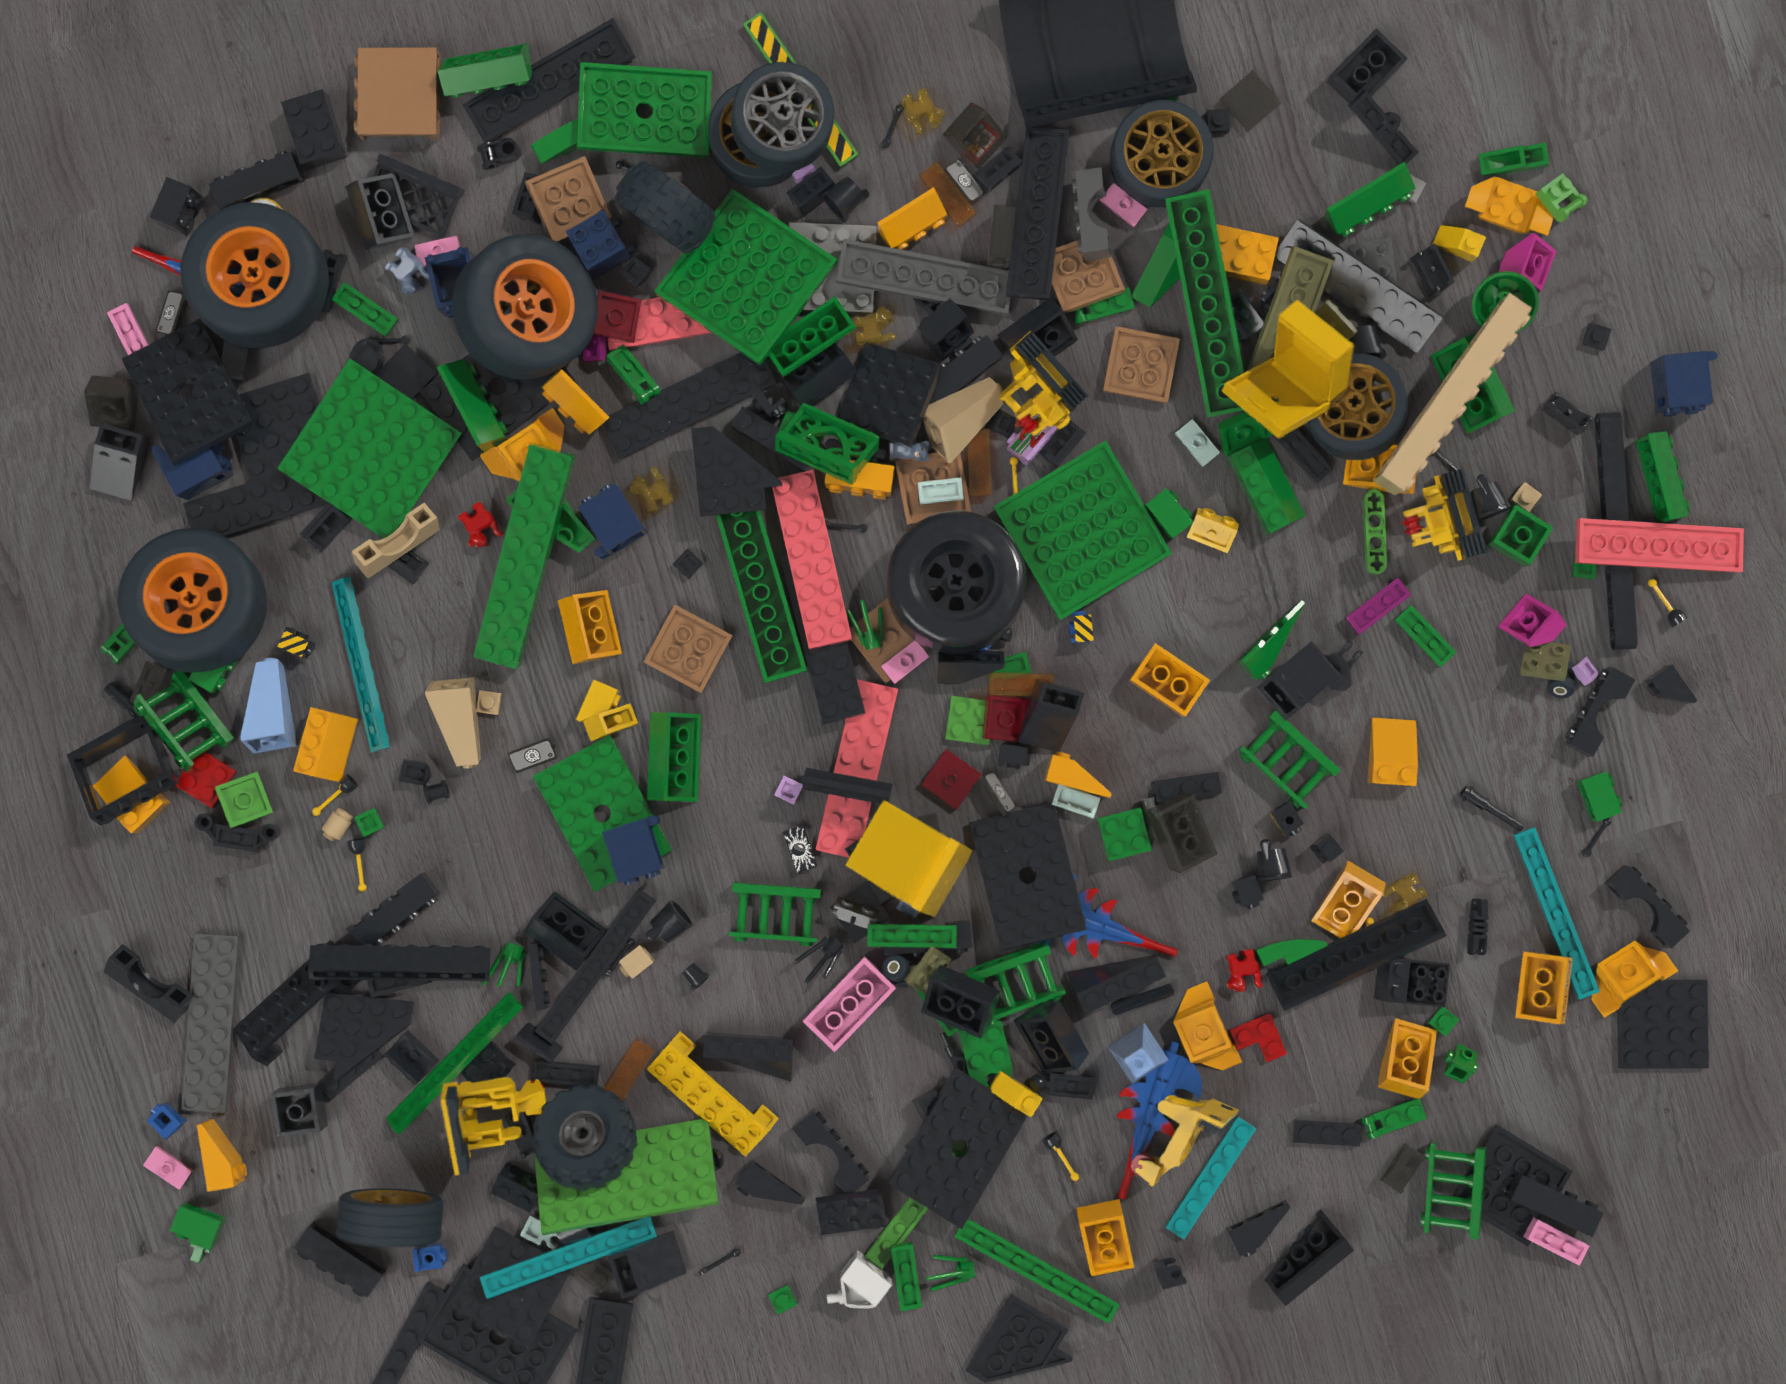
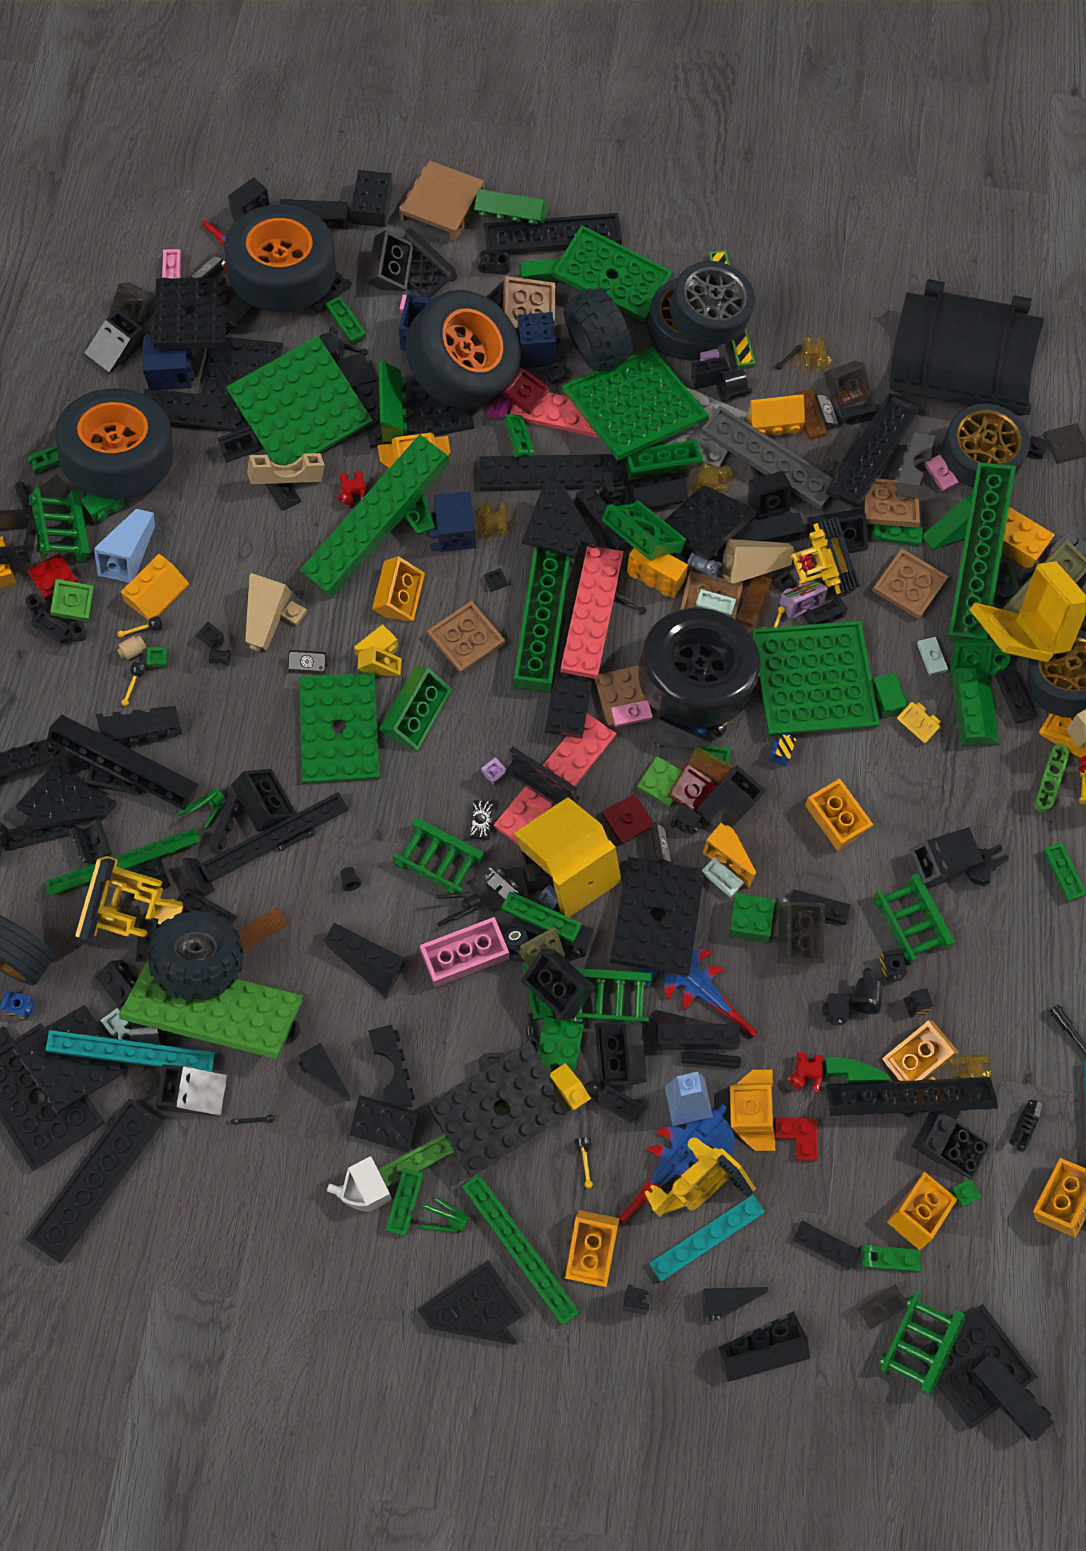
camera: 20 degrees right, 20 degrees down
(296, 643) = (173, 511): brick -> none
(360, 664) = (212, 545): teal plate -> none
(406, 269) = (389, 306): sand blue animal -> none
(573, 402) = (466, 431): light orange slope -> none
(634, 850) = (351, 754): dark blue container -> none
(636, 962) = (308, 847): tan brick -> none
(669, 923) = (349, 827): black hat -> none
(708, 1098) = (312, 979): yellow bracket -> none
(782, 1299) = (290, 1175): green plate -> none
(871, 639) = (613, 685): green plant -> none
(1265, 651) = (927, 824): green wedge -> none
(1377, 606) = (1033, 833): magenta plate -> none
(1393, 752) = (1003, 953): light orange slope -> none
(1460, 1063) = (969, 1233): green brick -> none
(1556, 1241) = (1000, 1434): bright pink plate -> none

